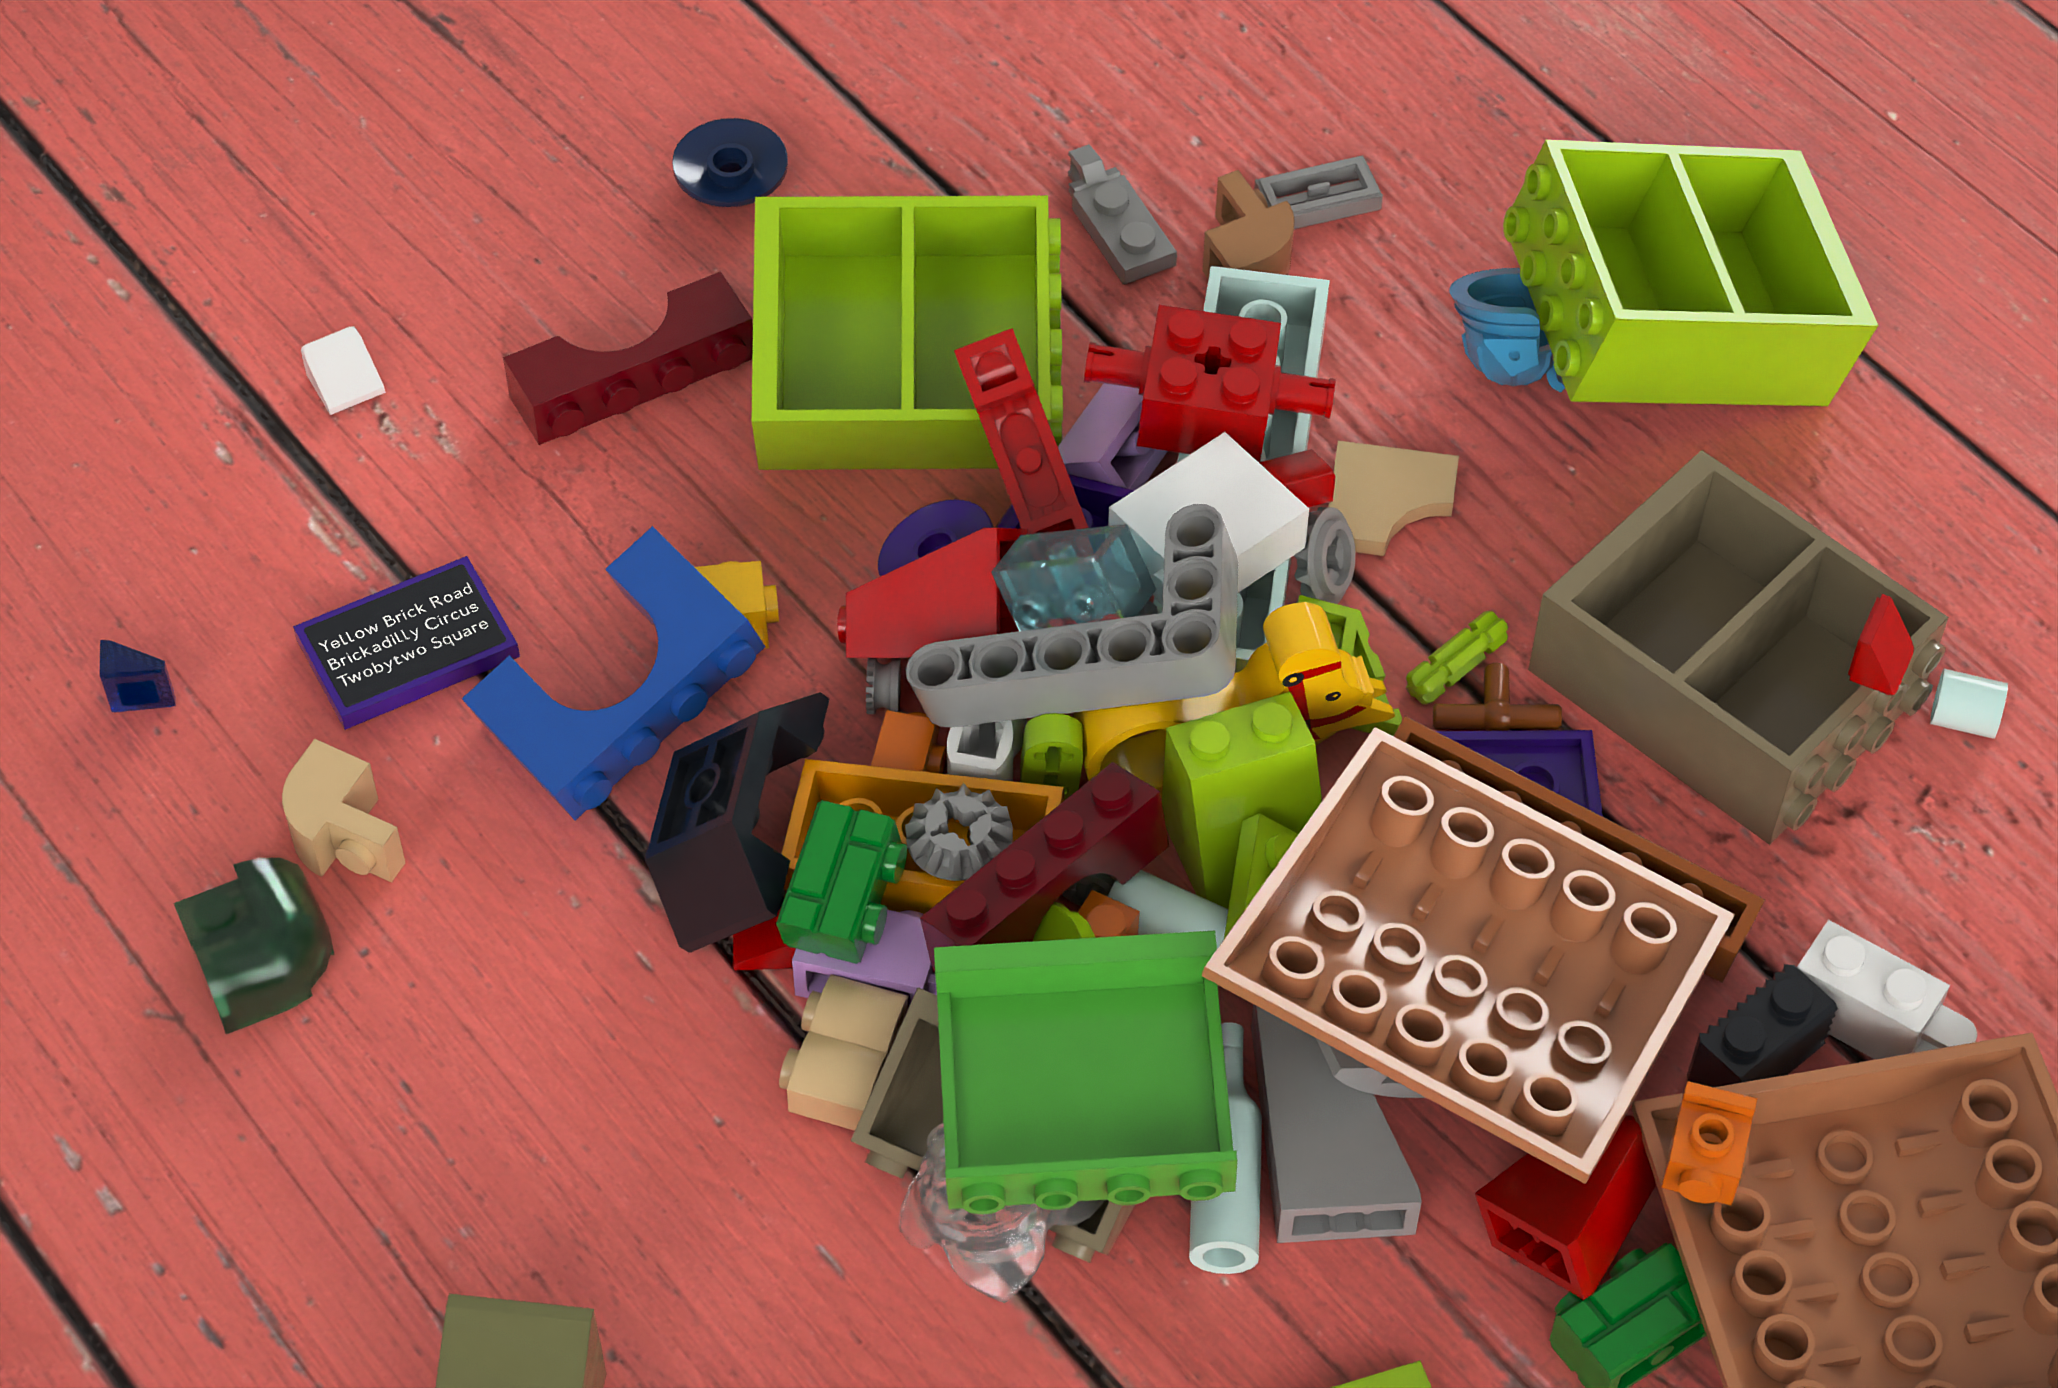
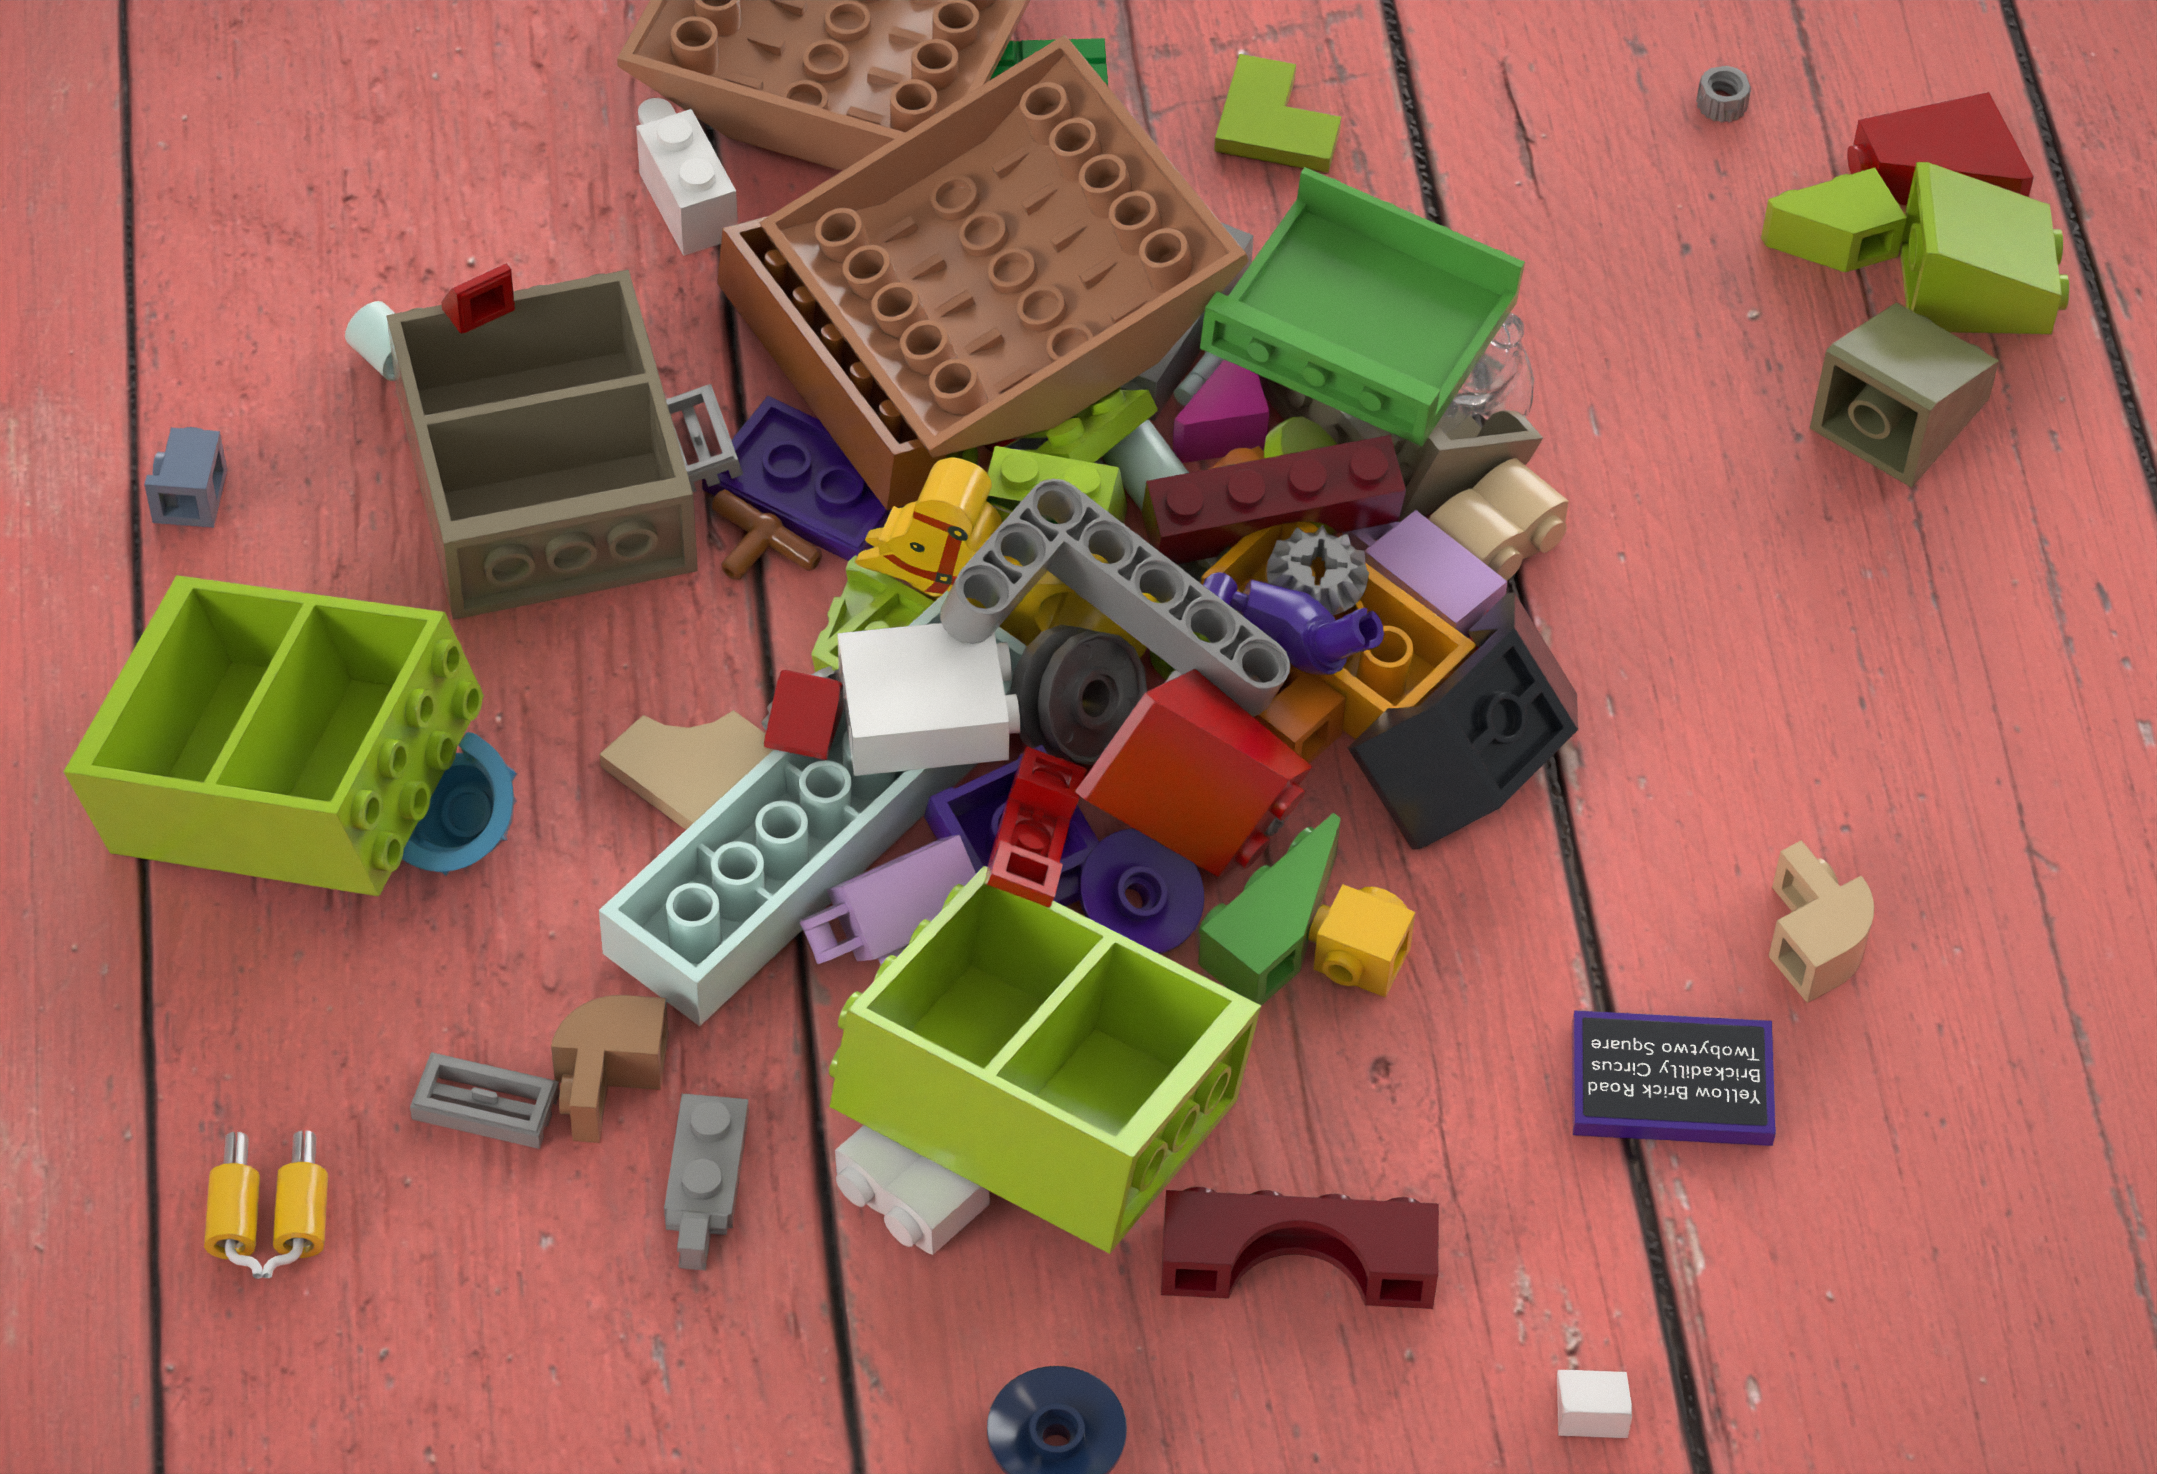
camera: 150 degrees left, 0 degrees up
(134, 679) = (1950, 1147): clear blue slope -> none
(257, 941) = (1938, 853): clear green brick -> none
(587, 752) = (1577, 857): blue arch -> none
(813, 568) = (1265, 930): none -> bright green slope
(841, 882) = (1443, 573): green brick -> none
(931, 761) = (1301, 623): none -> dark purple arm
(1073, 577) = (1104, 640): clear light blue brick -> none
(1208, 379) = (818, 814): red brick -> none
(1415, 37) = (298, 1206): none -> yellow piece
(1457, 657) = (755, 592): lime axle -> none
(1618, 760) = (708, 466): none -> light grey tile
(1709, 1144) = (931, 76): orange brick -> none
(1765, 1033) = (773, 180): black brick -> none
(1993, 500) = (187, 478): none -> sand blue brick

